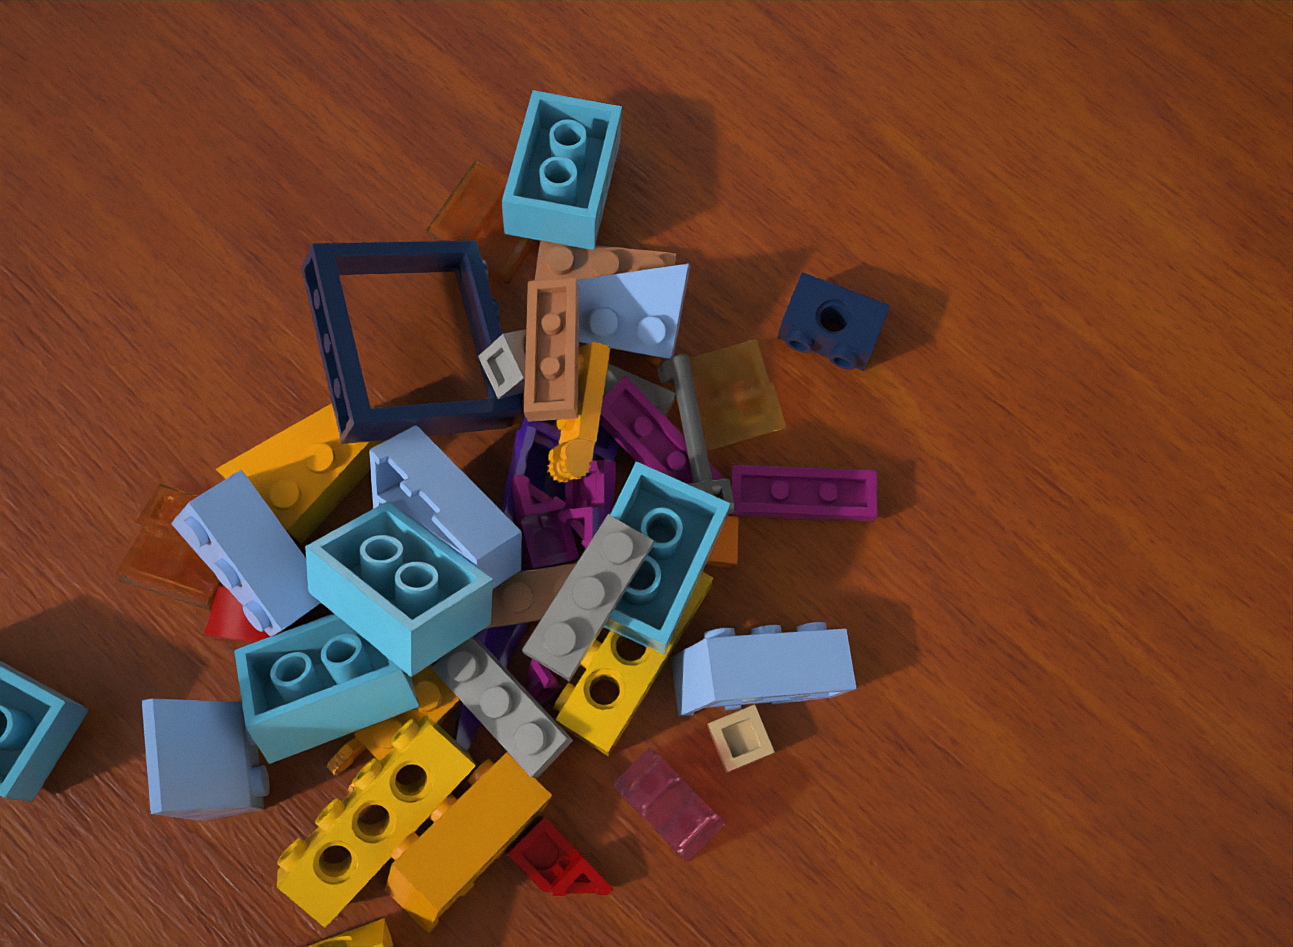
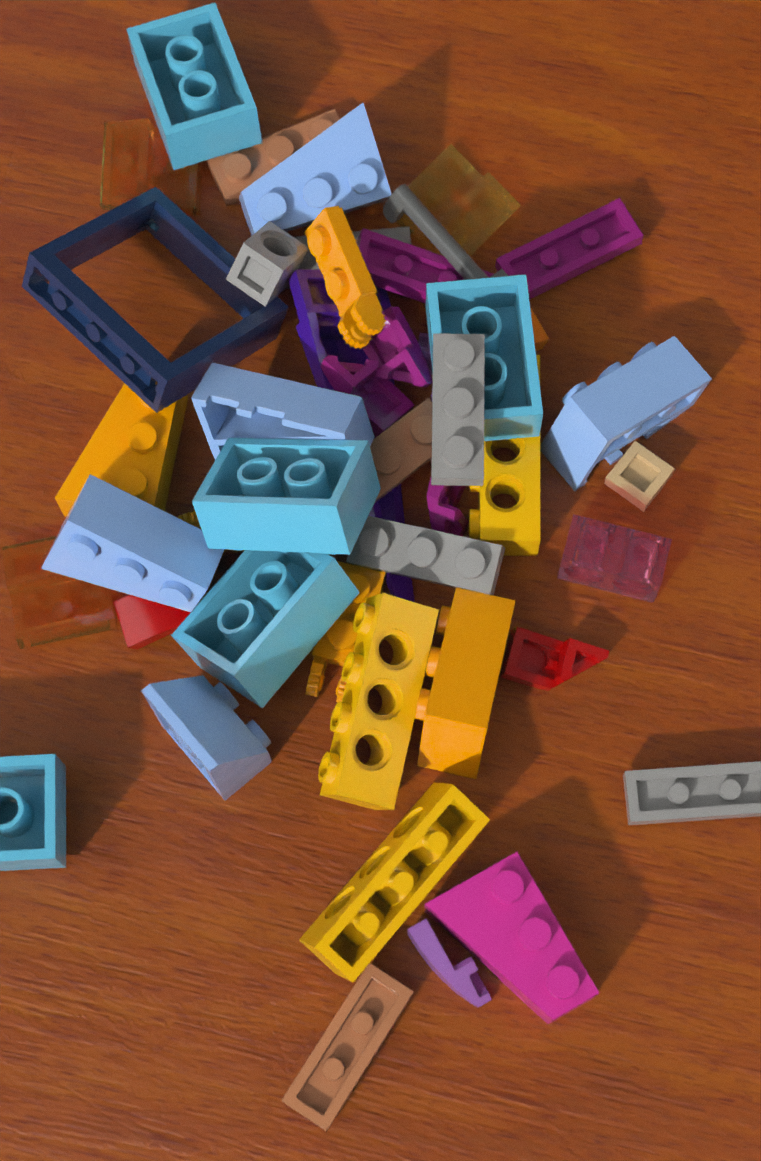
camera: 25 degrees left, 0 degrees up
(552, 350) = (294, 232): nougat plate -> none
(823, 301) = (523, 78): dark blue brick -> none

